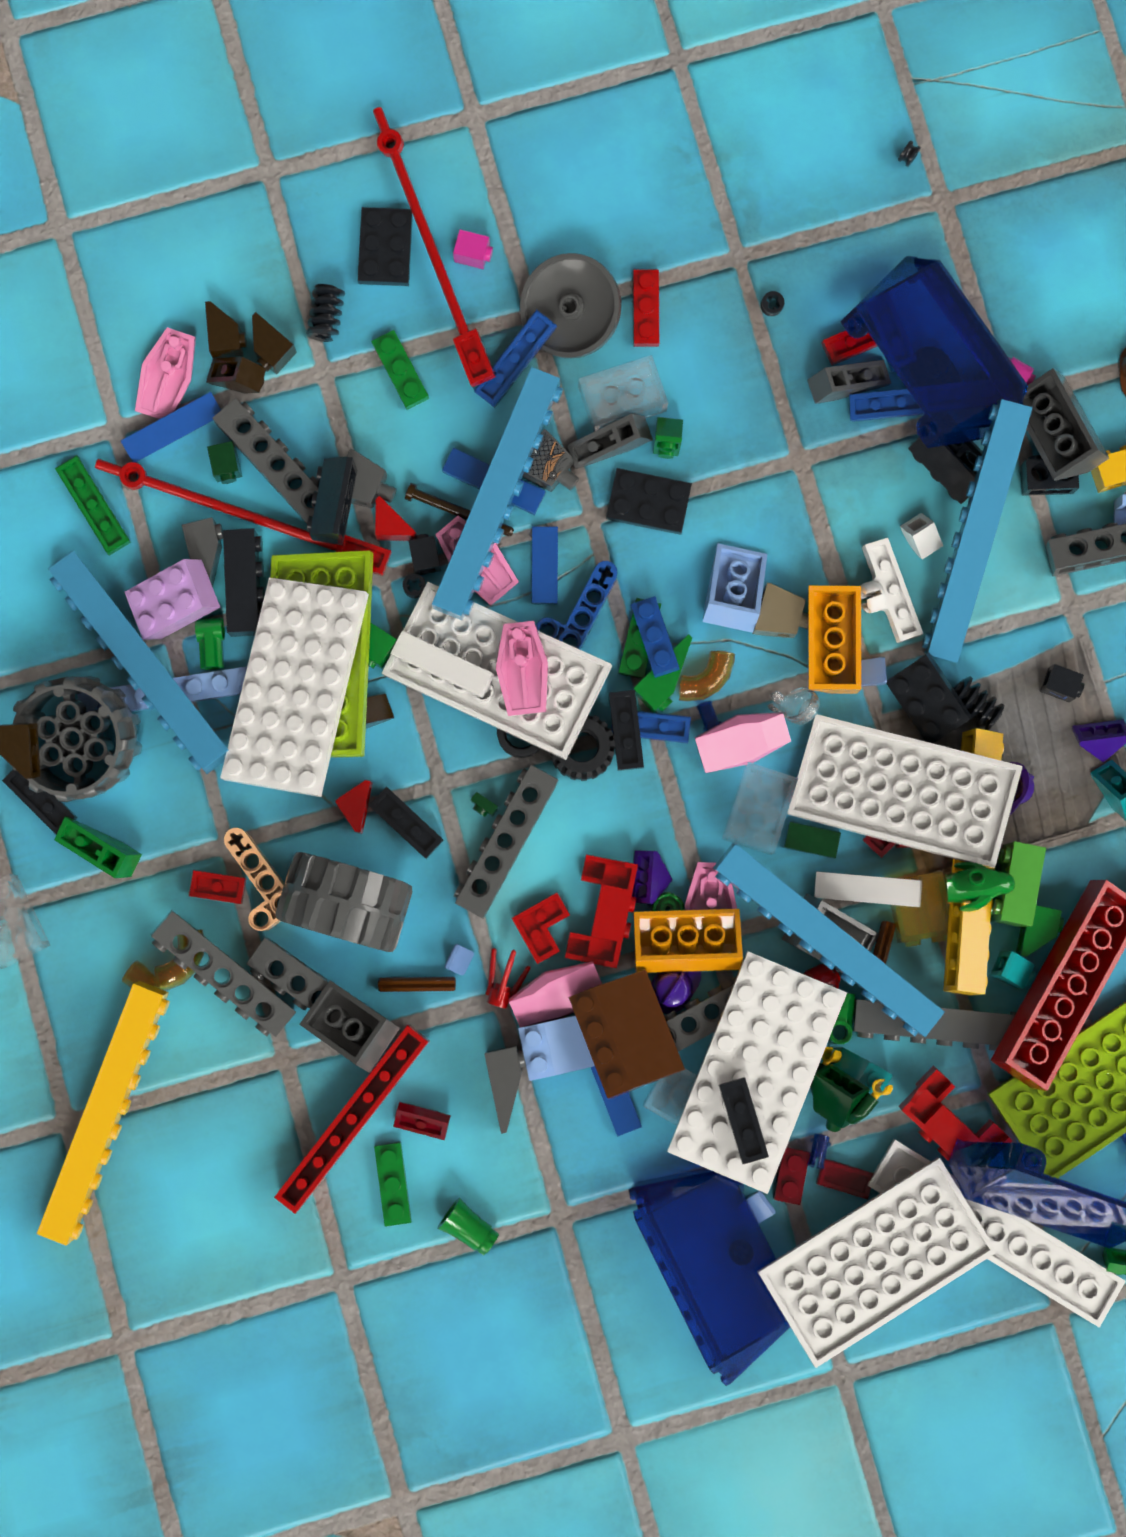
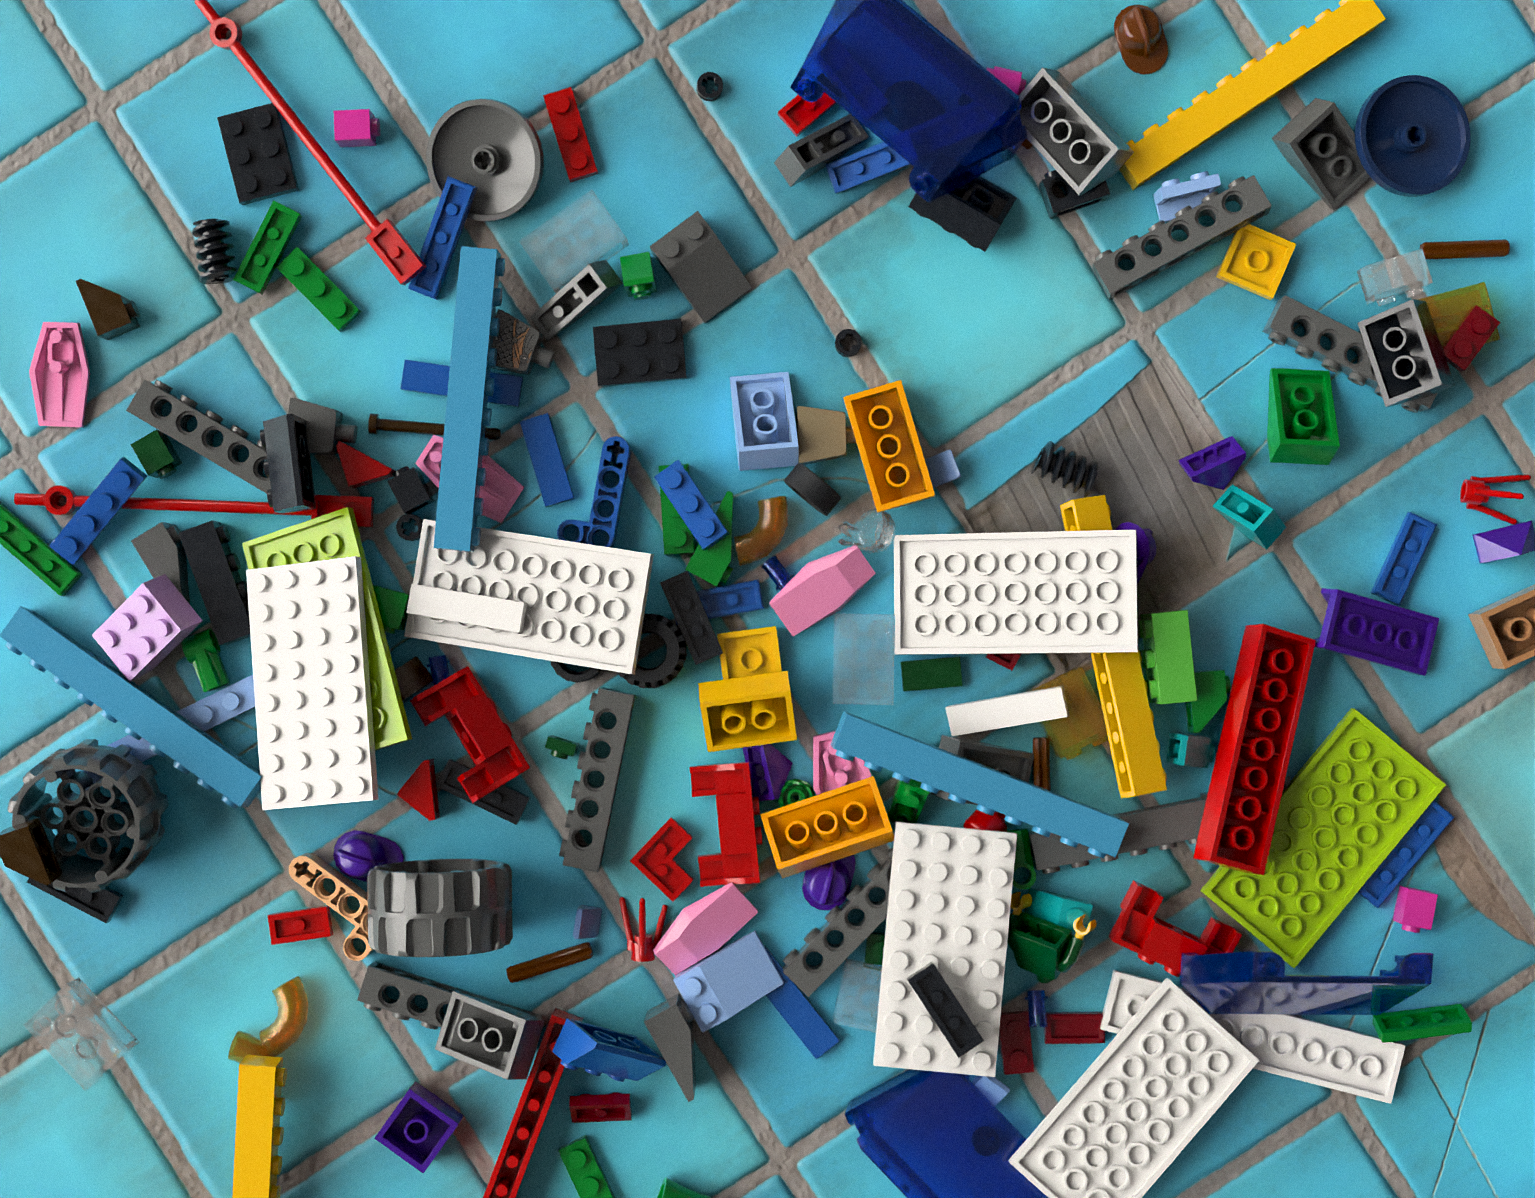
camera: 15 degrees left, 5 degrees up
(98, 848) = (157, 924): green slope -> none
(162, 493) = (98, 510): none -> blue plate
(171, 427) = (85, 433): blue tile -> none
(236, 374) = (138, 351): dark brown slope -> none
(264, 1088) = (419, 1127): none -> dark purple brick
(270, 345) = (164, 307): dark brown slope -> none
(279, 1012) = (296, 995): dark grey brick -> none
(284, 840) = (362, 851): none -> dark purple piece
(369, 323) = (267, 247): none -> green plate
(401, 713) = (439, 668): none -> clear blue pin
(419, 767) = (478, 728): none -> red bracket
(443, 1072) = (605, 1051): none -> blue slope
(522, 669) = (556, 588): bright pink piece -> none
(626, 1034) = (791, 952): reddish brown slope -> none
(650, 822) = (747, 711): none -> yellow brick
(664, 781) = (749, 652): none -> yellow plate
(695, 1057) = (874, 948): none -> dark green plate
(720, 446) = (700, 267): none -> dark grey slope
(759, 654) = (812, 489): none -> black tyre
(762, 937) = (907, 802): none -> green slope
(829, 551) = (841, 337): none -> black bush
(889, 591) = (934, 373): white plate -> none
(922, 535) = (952, 299): white brick -> none
(928, 699) = (1013, 481): black plate -> none
(976, 885) = (1123, 677): green animal -> none
(977, 530) = (1011, 277): dark azure brick -> none
(1062, 683) = (1154, 417): black brick -> none

